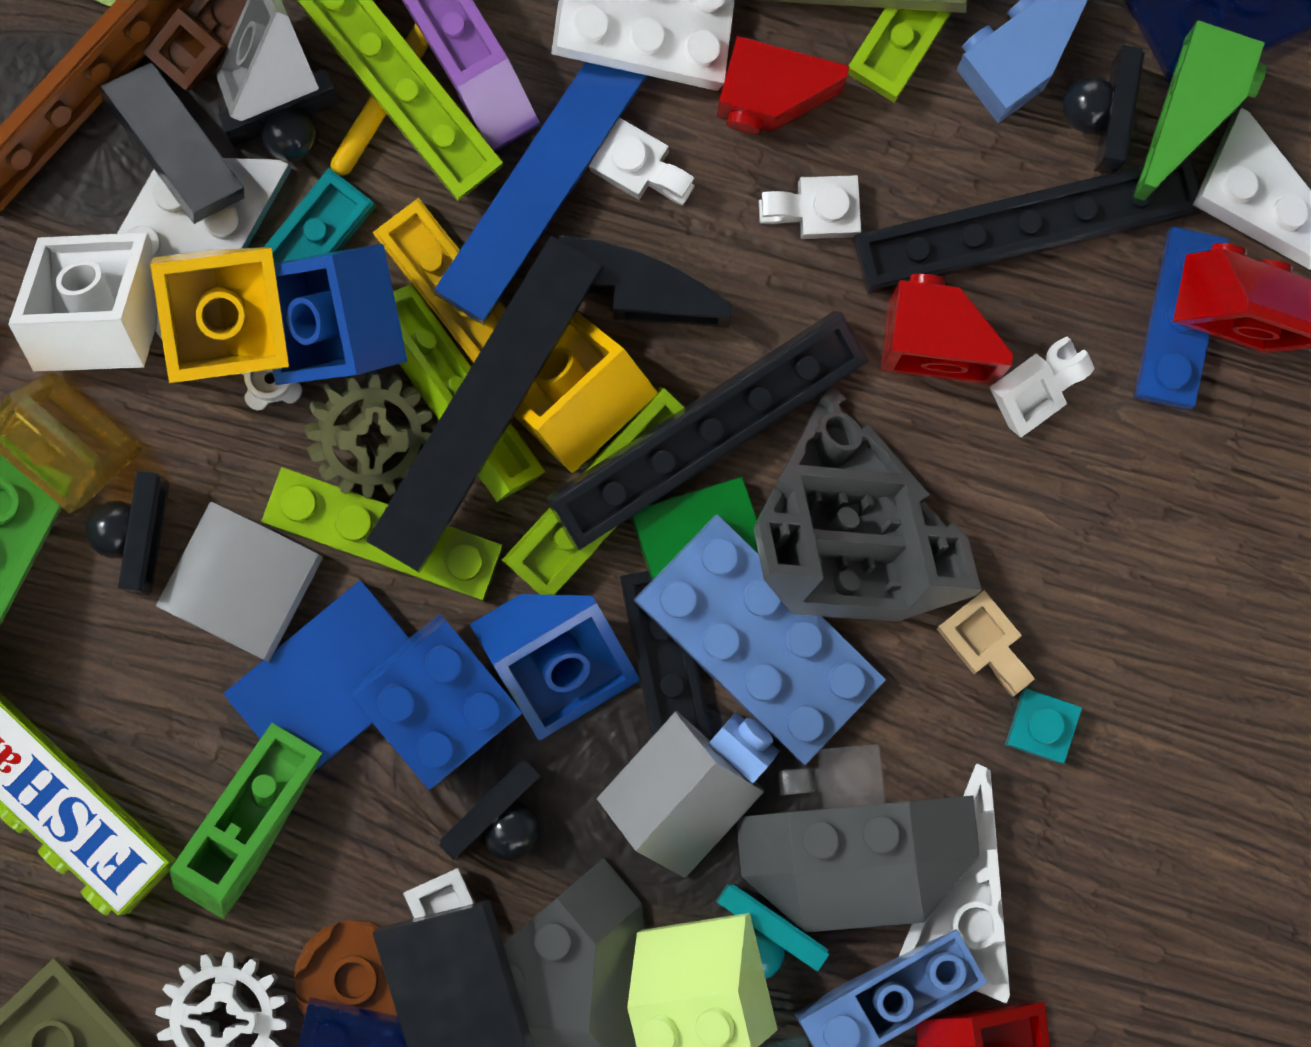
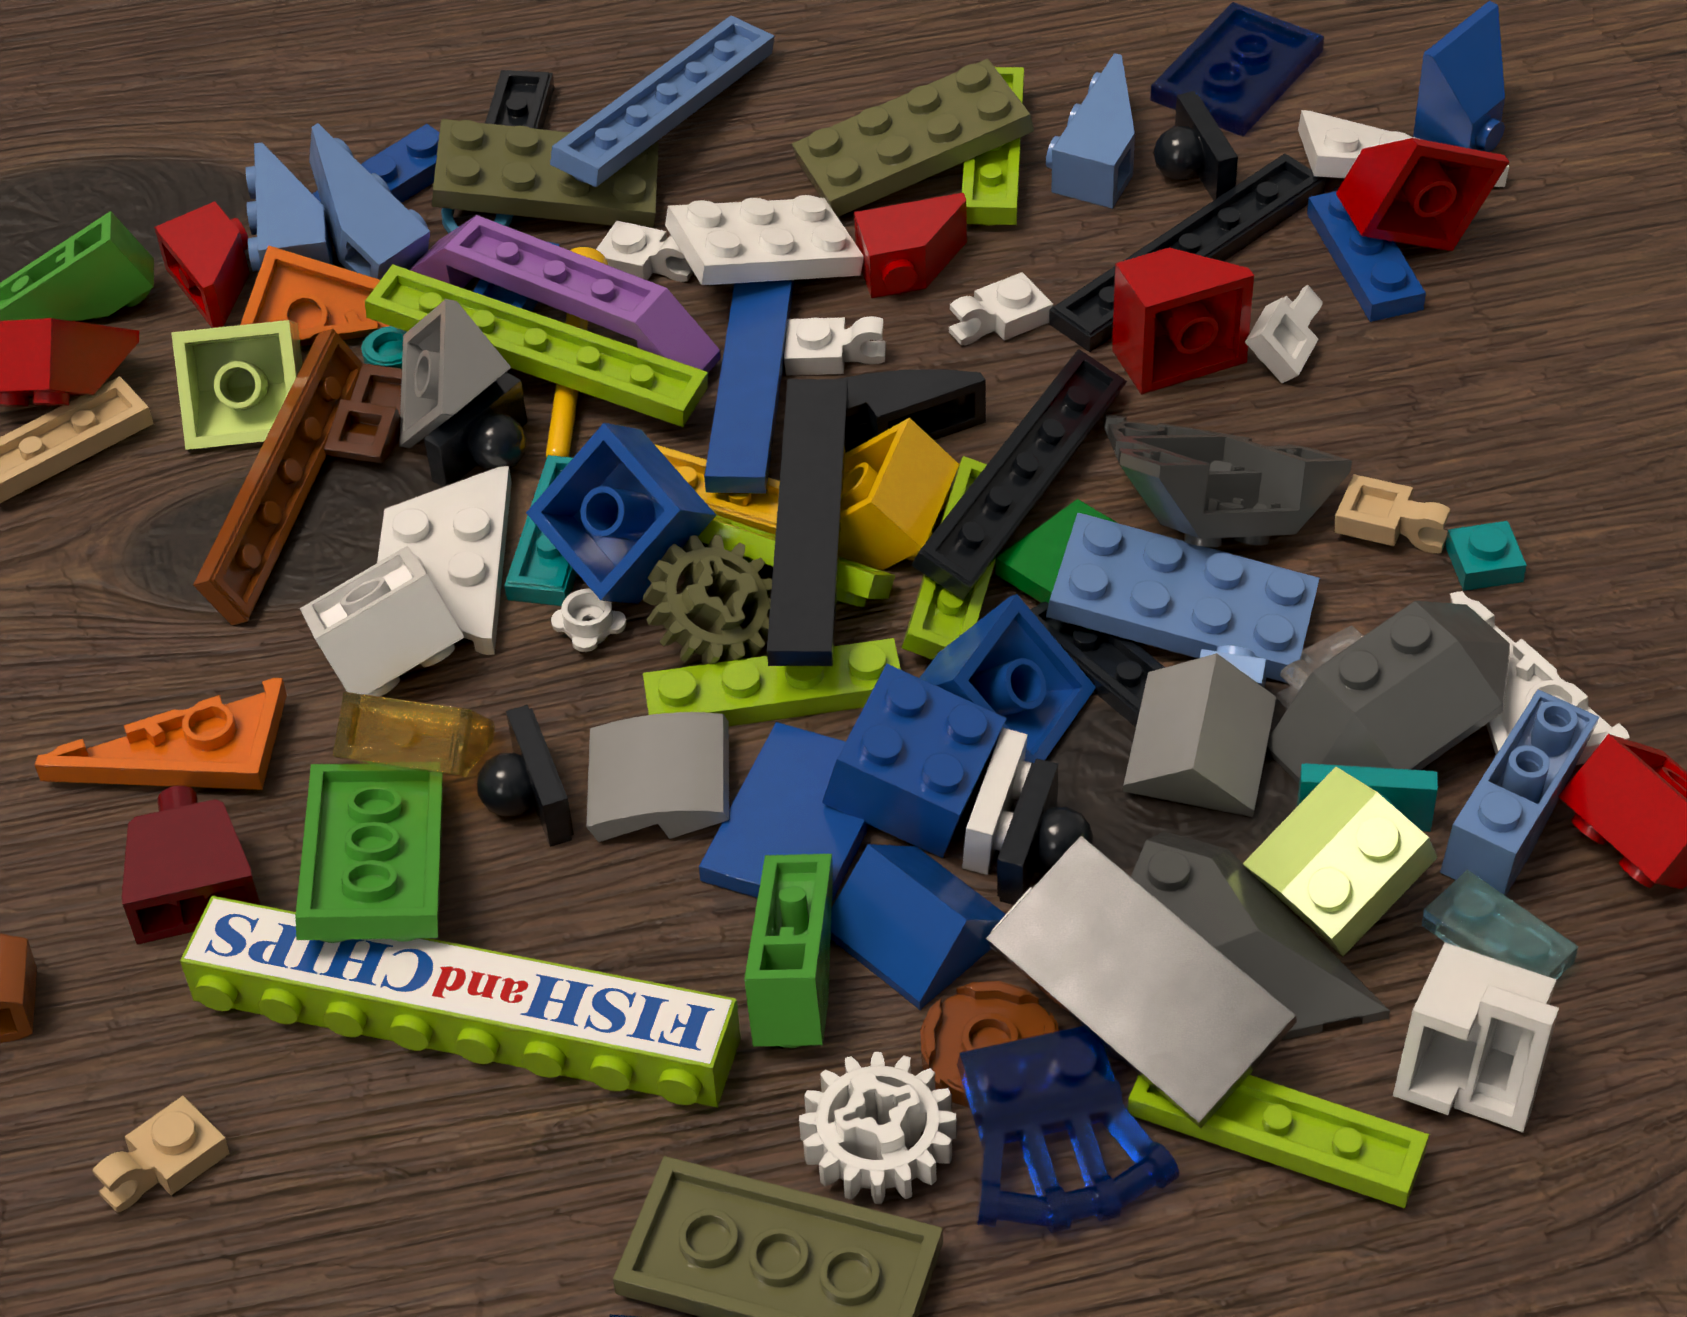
camera: 20 degrees left, 35 degrees down
(172, 142) = (392, 487): black tile -> none
(219, 313) = (513, 555): yellow slope -> none
(364, 836) = (911, 921): none -> blue slope
(467, 785) = (995, 799): none -> white plate
(1207, 87) = (1263, 97): bright green slope -> none

